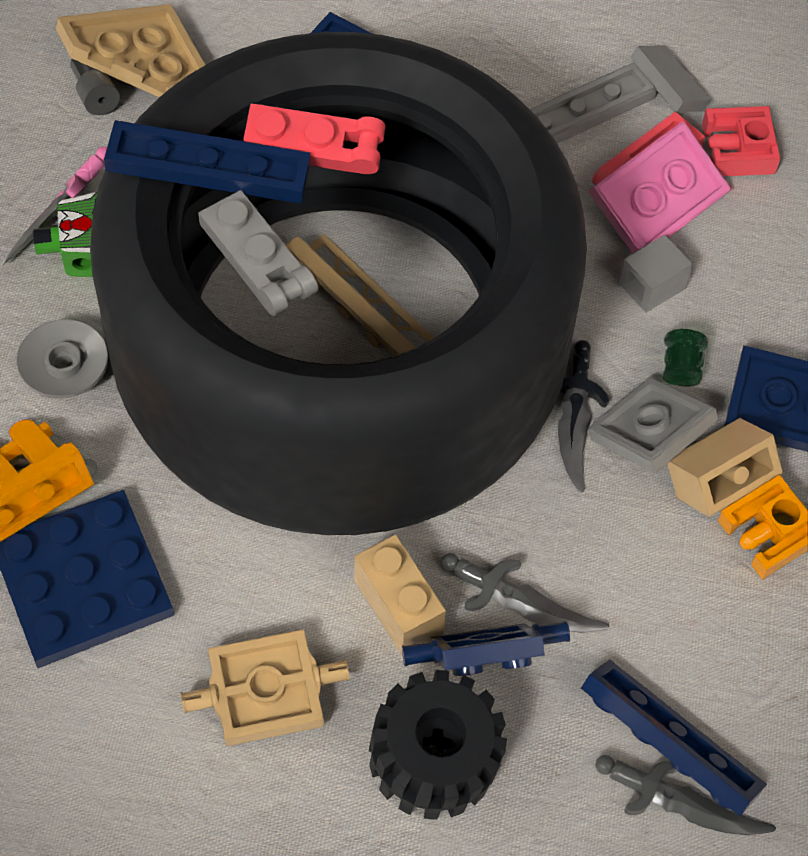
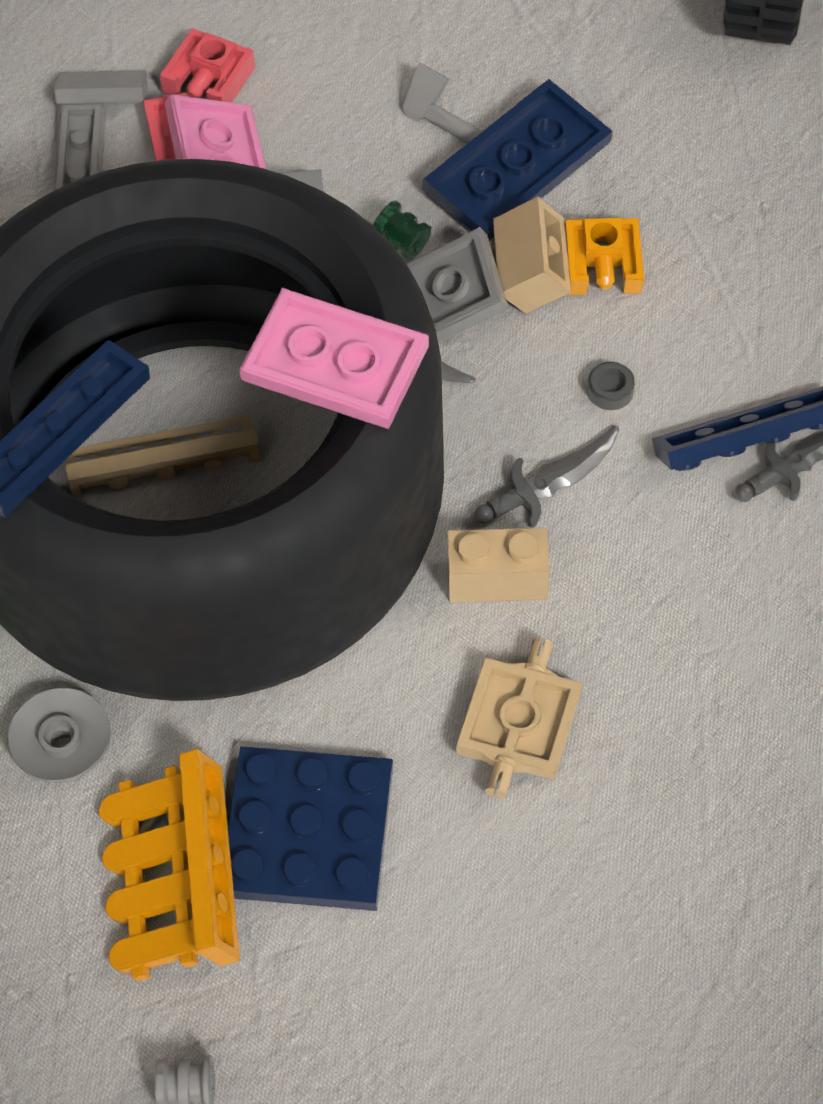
camera: 55 degrees left, 0 degrees up
(257, 252) = (182, 438): light grey plate -> none
(319, 135) = (86, 330): coral plate -> none
(401, 322) = (334, 358): none -> bright pink tile
(443, 716) = (664, 600): black wheel -> none
(470, 650) = (596, 516): dark blue plate -> none
(645, 600) = (610, 386): none -> dark grey tile

